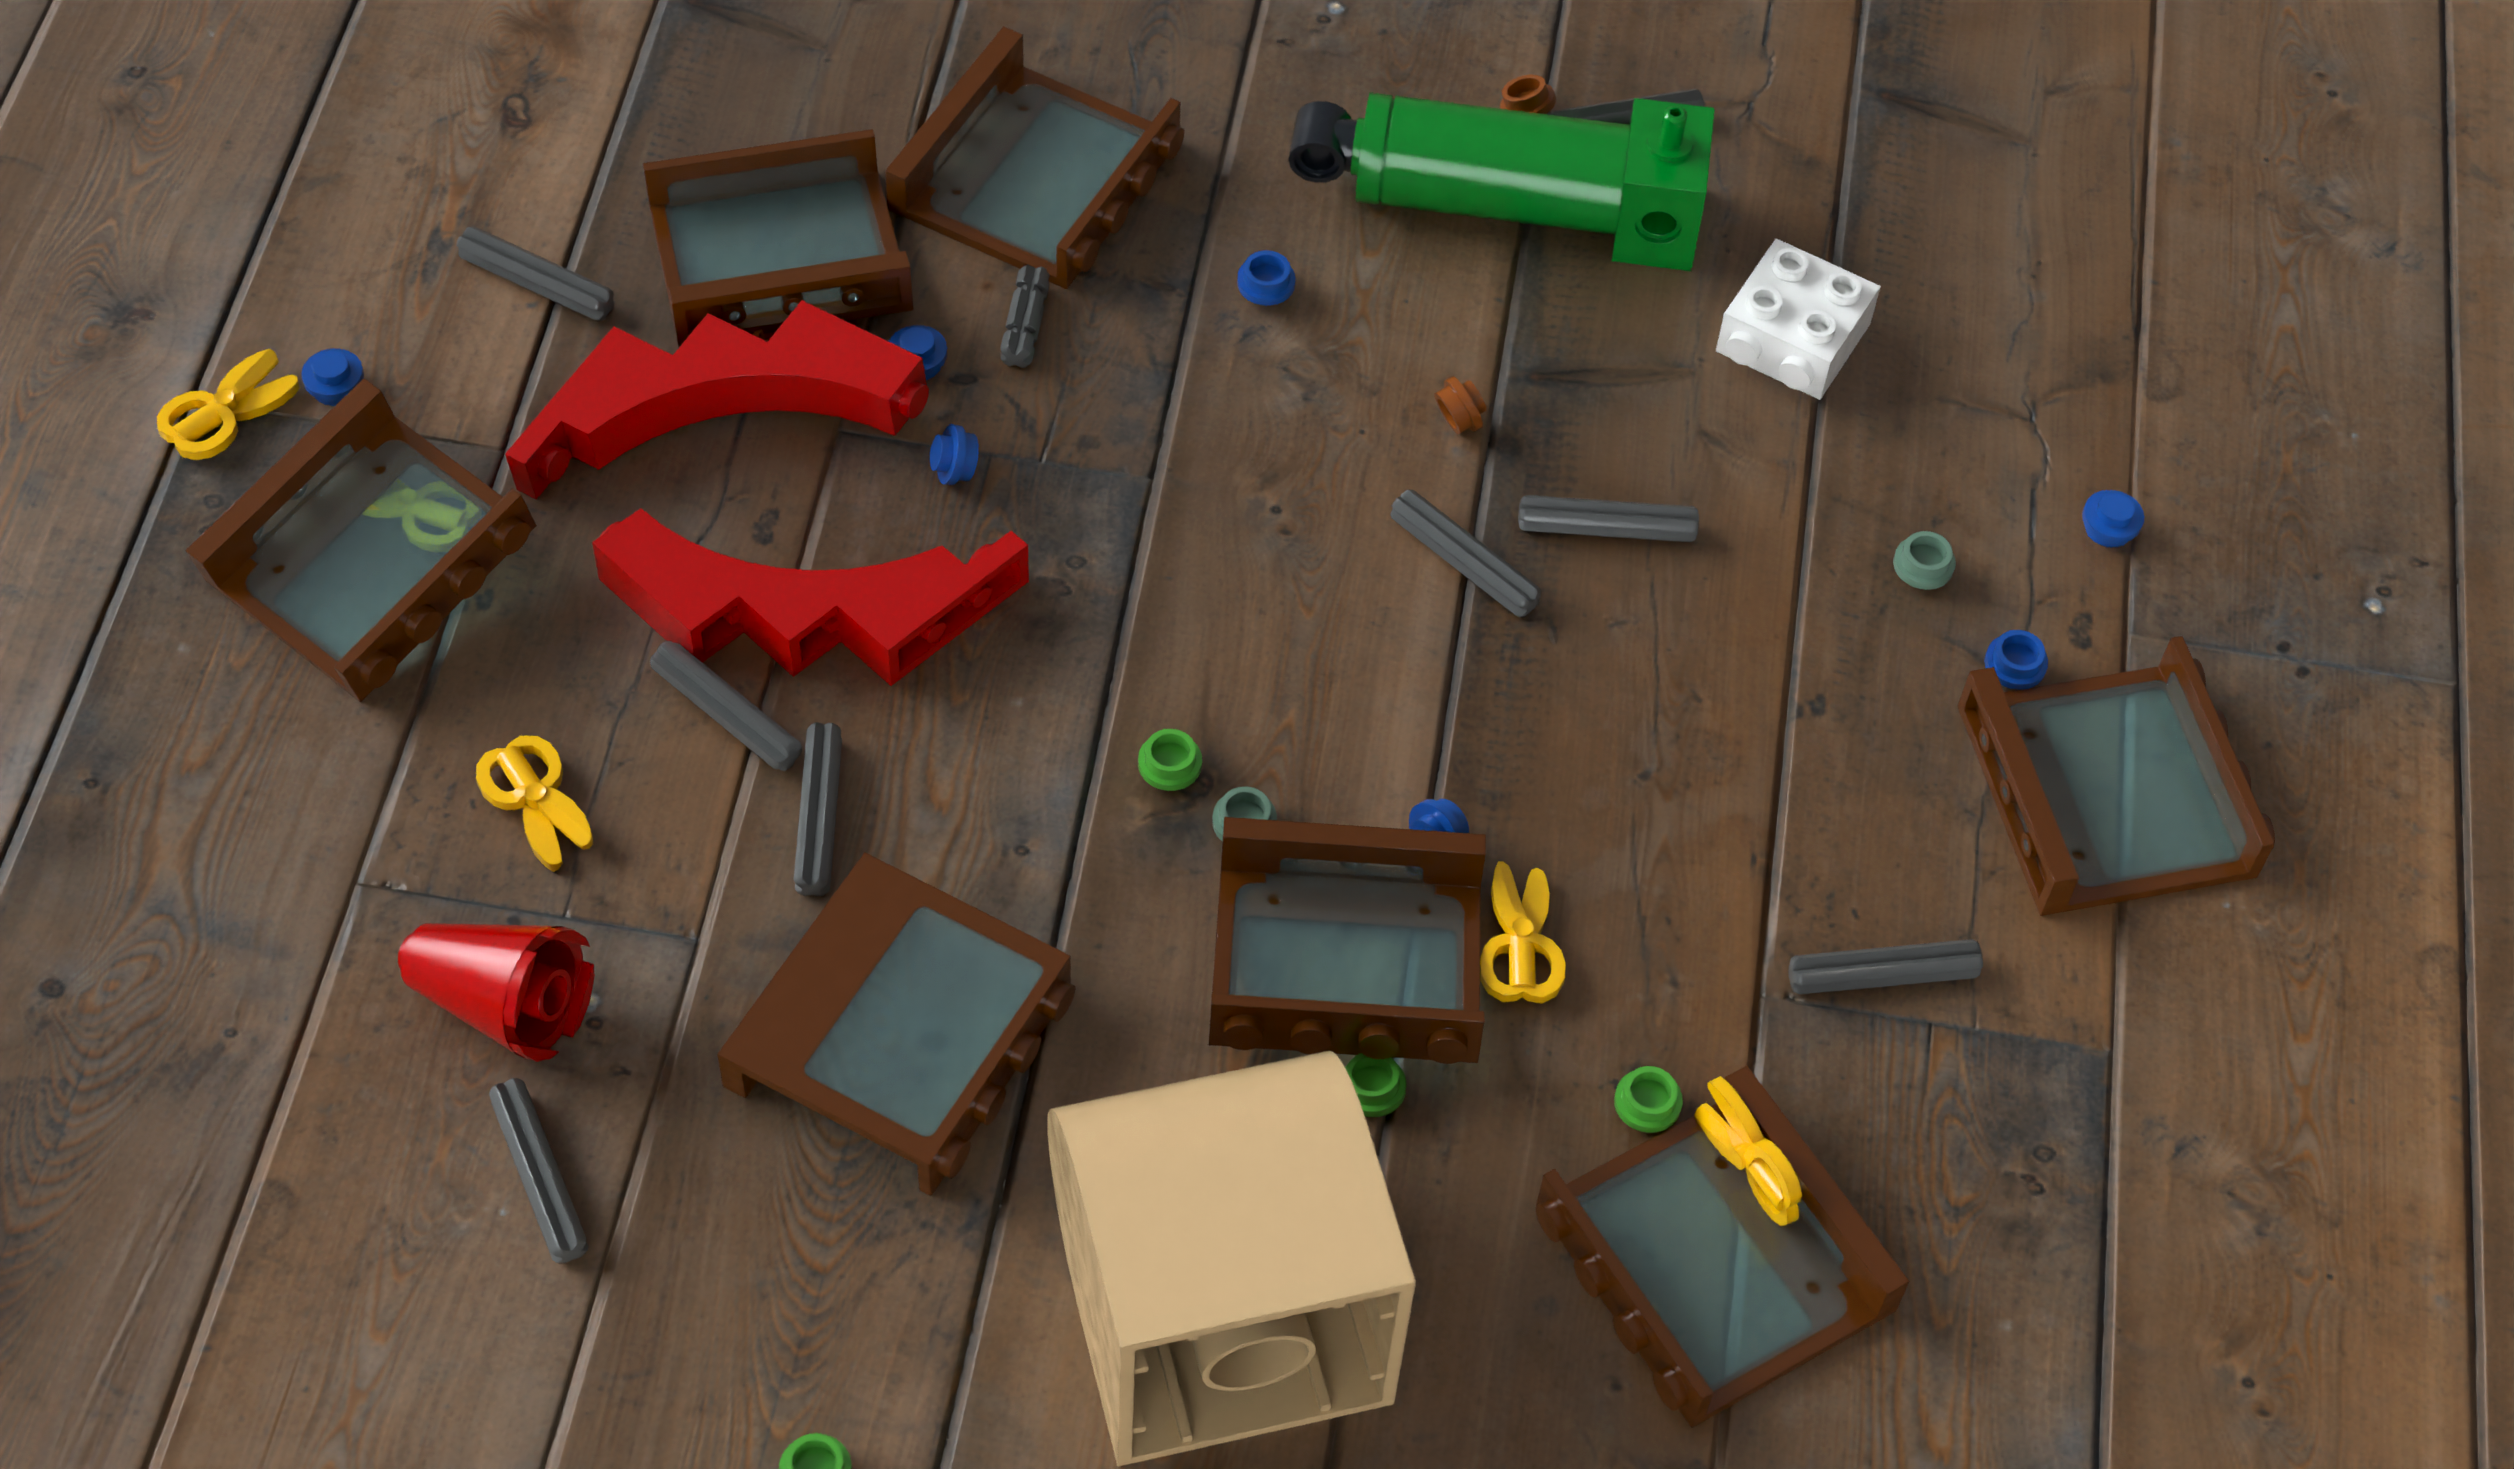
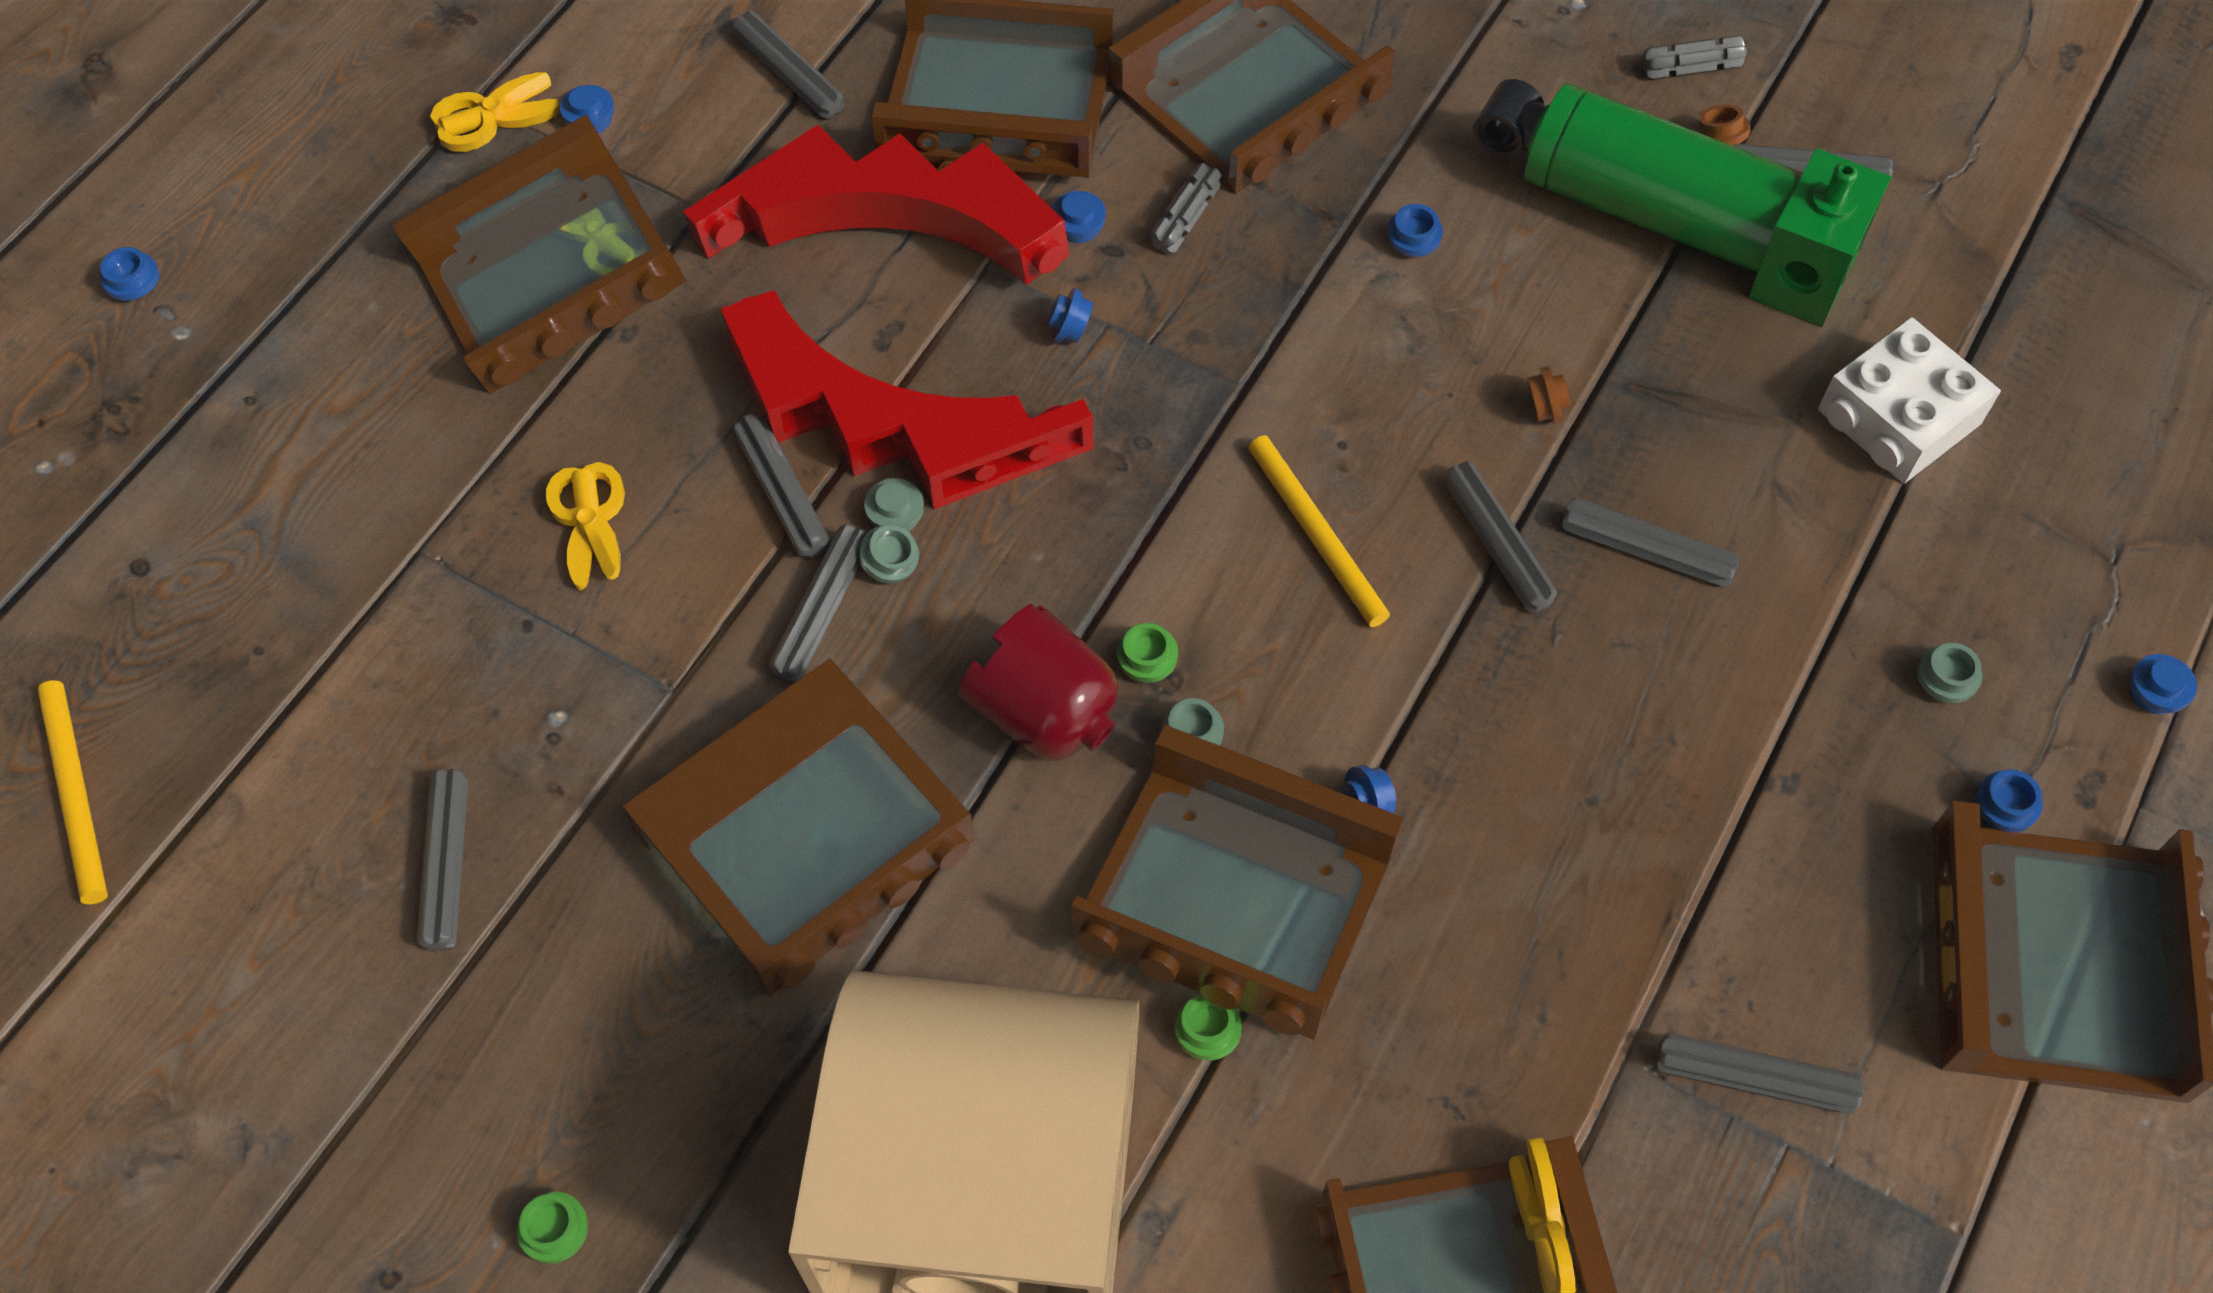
camera: 25 degrees right, 5 degrees up
(97, 1230) = (72, 793): none -> yellow bar
(503, 980) = (482, 682): red cone -> none
(853, 692) = (894, 503): none -> sand green plate
(870, 739) = (889, 554): none -> sand green plate
(1092, 818) = (1044, 687): none -> dark red cylinder
(1288, 597) = (1319, 531): none -> yellow bar
(1472, 35) = (1694, 57): none -> dark grey axle
(1523, 938) = (1413, 916): yellow piece -> none
(1648, 1099) = (1468, 1132): bright green plate -> none

